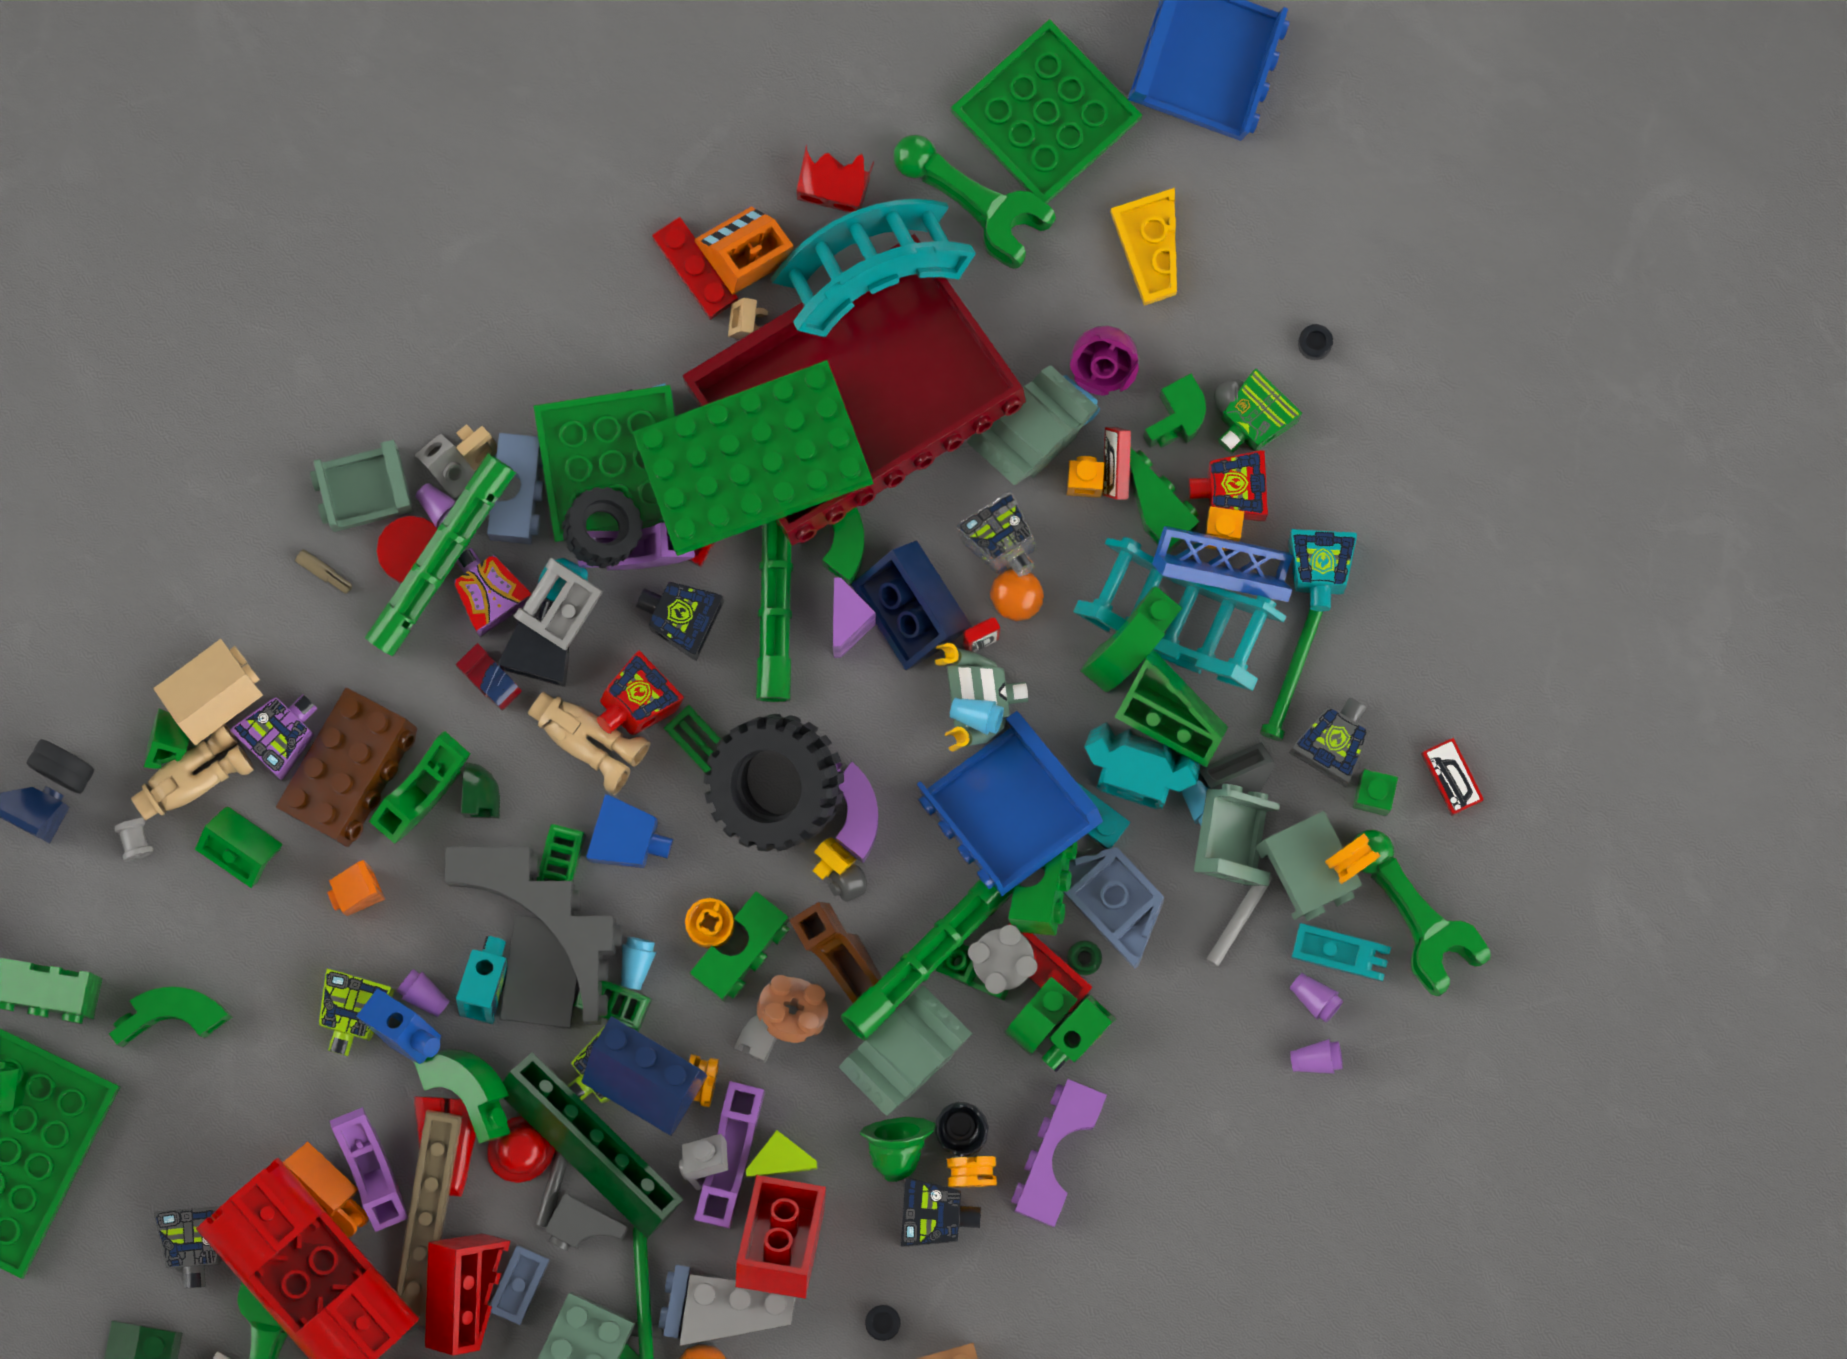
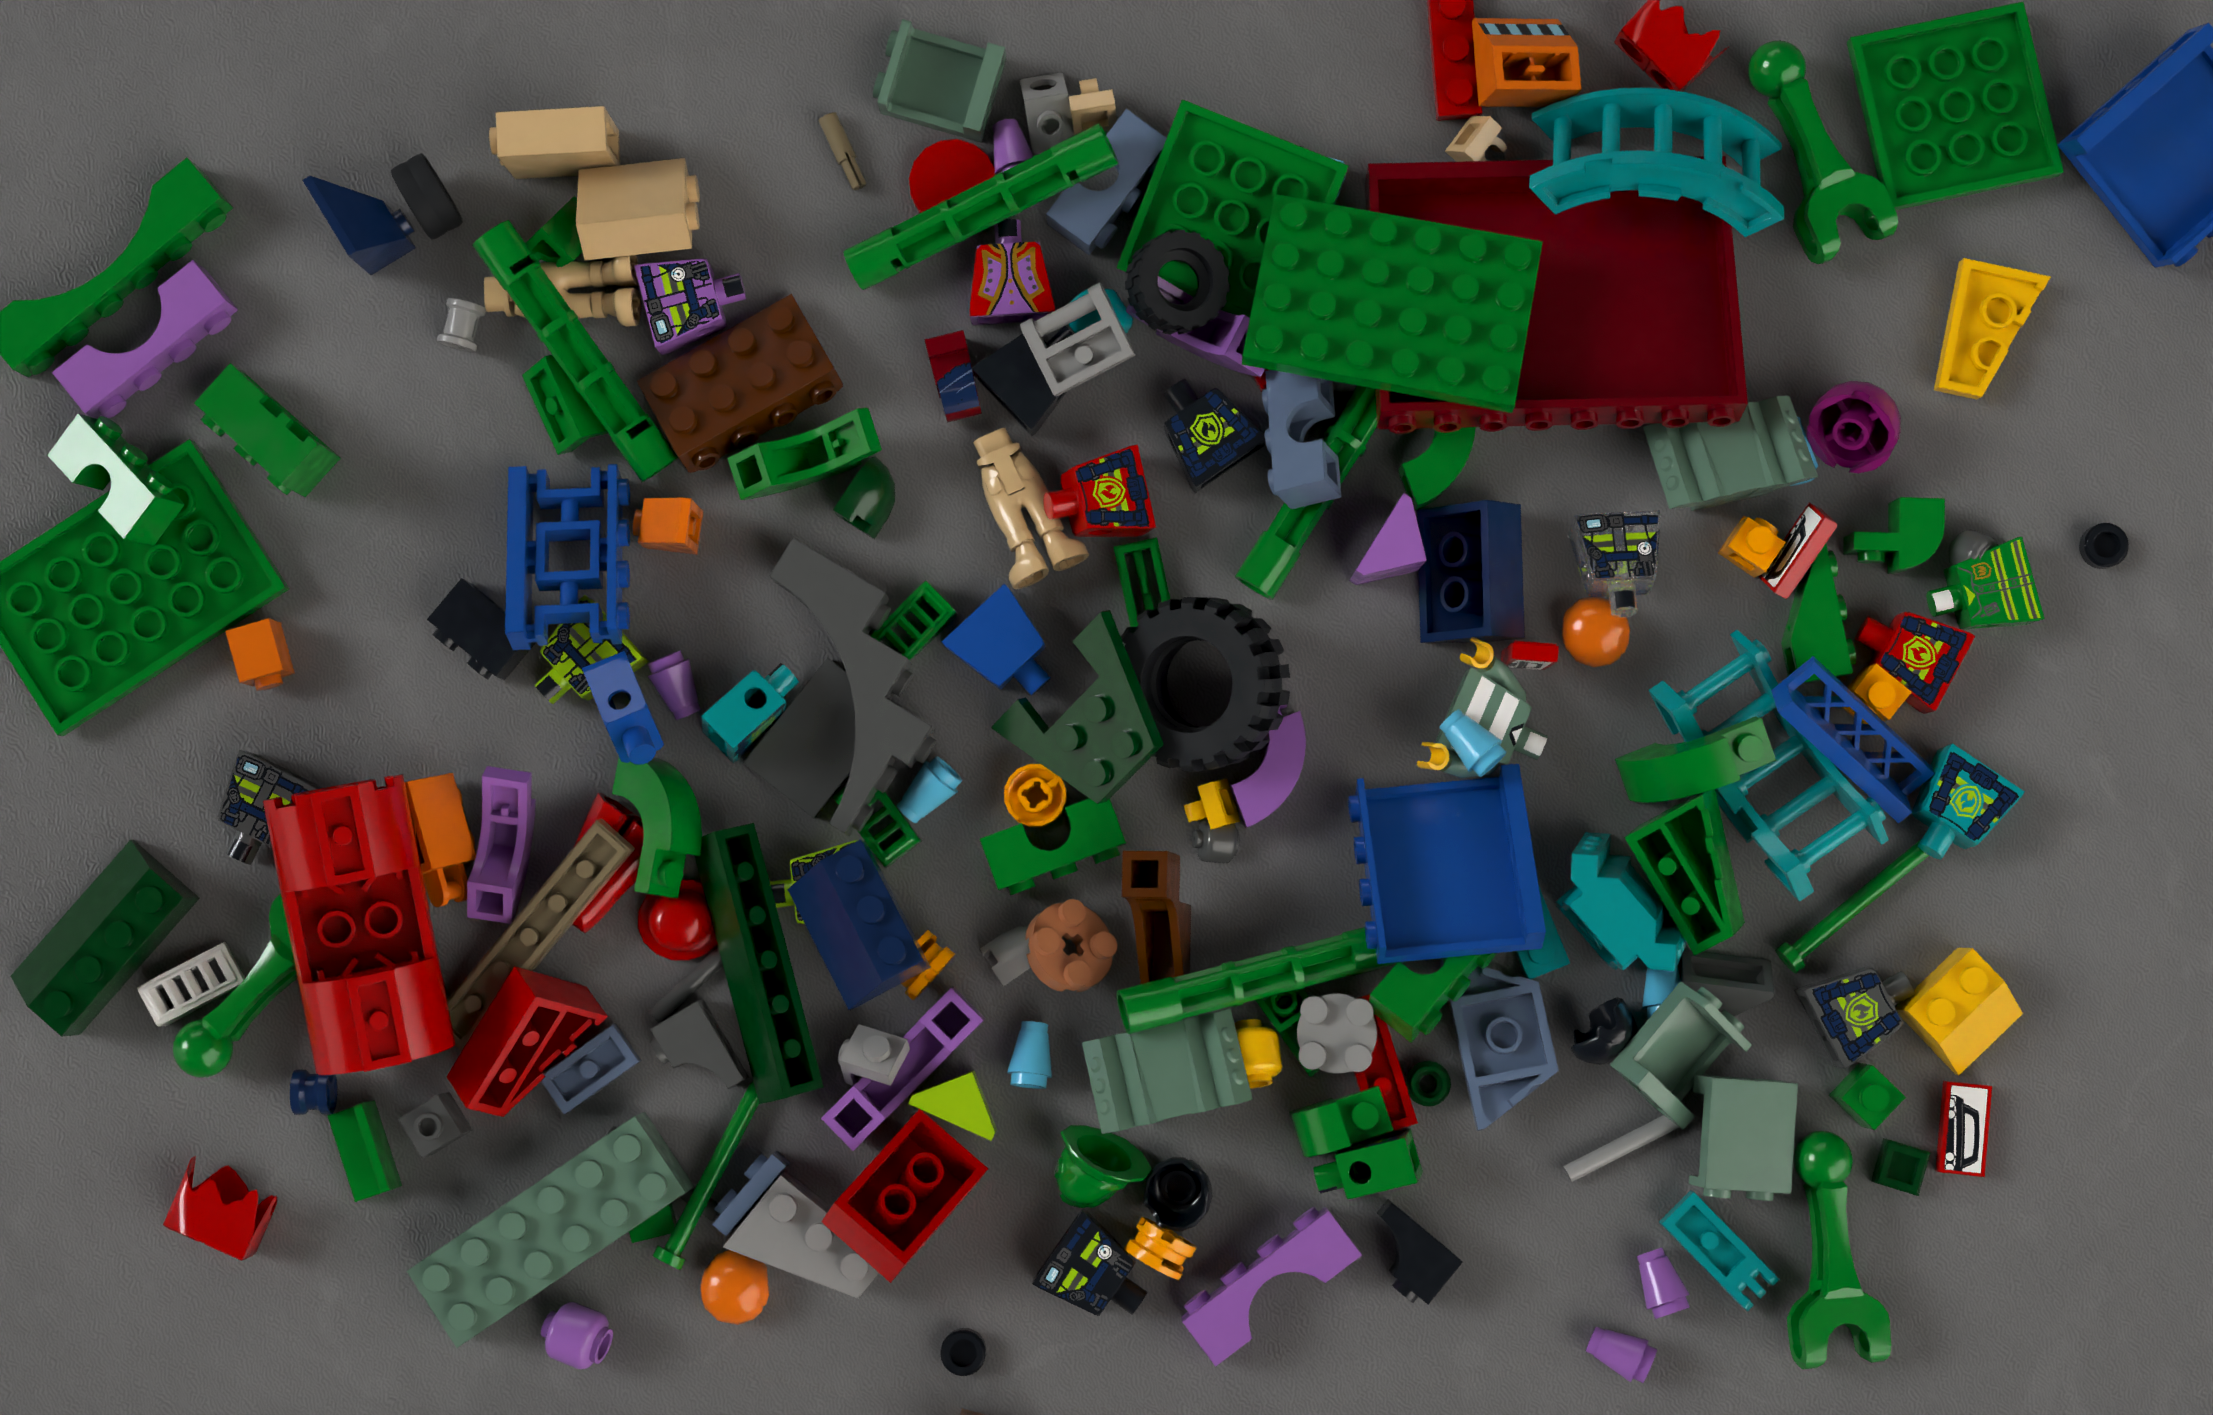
camera: 35 degrees right, 5 degrees up
(126, 679) = (555, 141): none -> tan brick
(128, 1141) = (260, 654): none -> orange brick
(170, 1003) = (416, 549): green arch -> none
(224, 810) = (574, 350): none -> green piece
(270, 1035) = (478, 627): none -> black brick
(276, 964) = (532, 557): none -> blue fence
(729, 853) = (1103, 732): none -> dark green wing
(758, 602) = (1300, 470): none -> sand blue arch
(810, 1098) = (1031, 1057): none -> medium azure cone
(960, 1003) = (1259, 1051): none -> yellow head
(1148, 1075) = (1420, 1259): none -> black arch
(1182, 850) = (1609, 1033): none -> black hair
(1352, 858) = (1800, 1161): light orange wheel -> none
(1403, 700) = (1960, 1008): none -> yellow slope
(1426, 826) = (1900, 1167): none -> dark green tile

